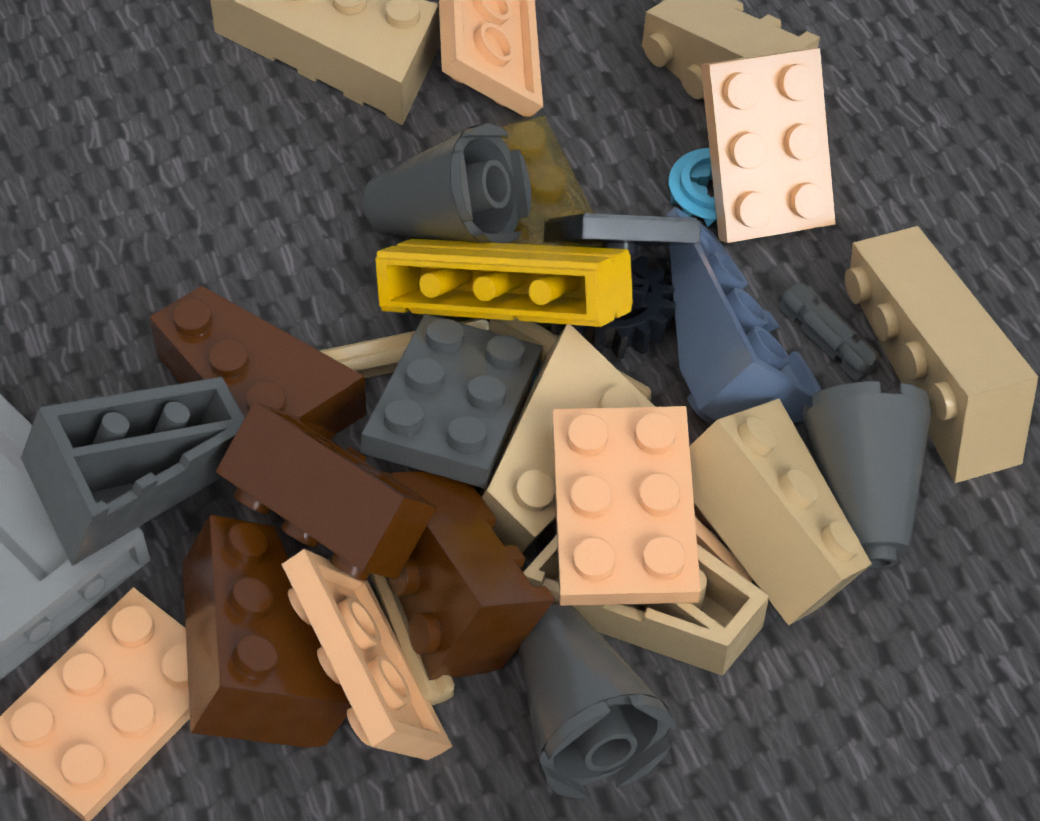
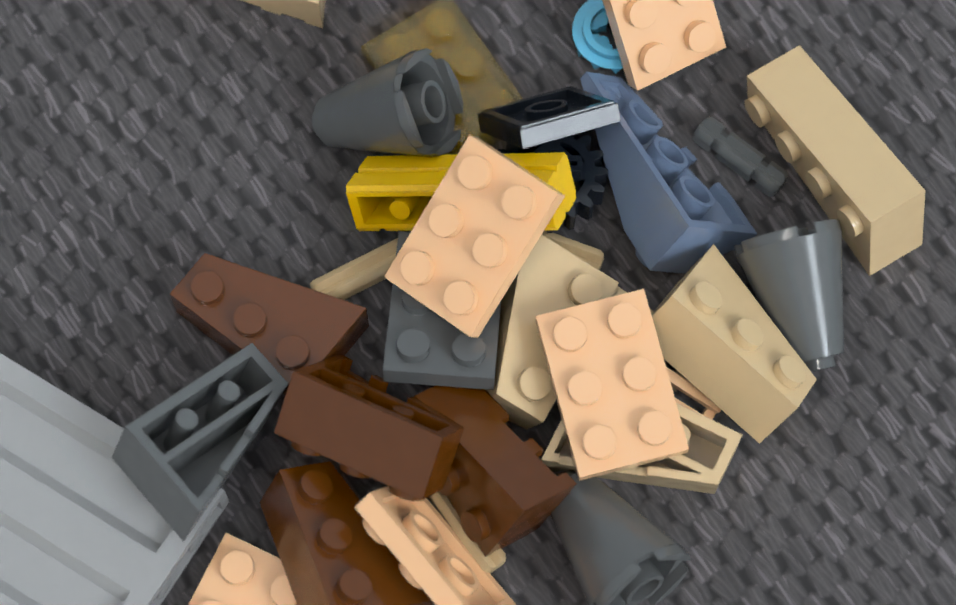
camera: 10 degrees left, 15 degrees up
(503, 308) = (474, 236): none -> light nougat plate

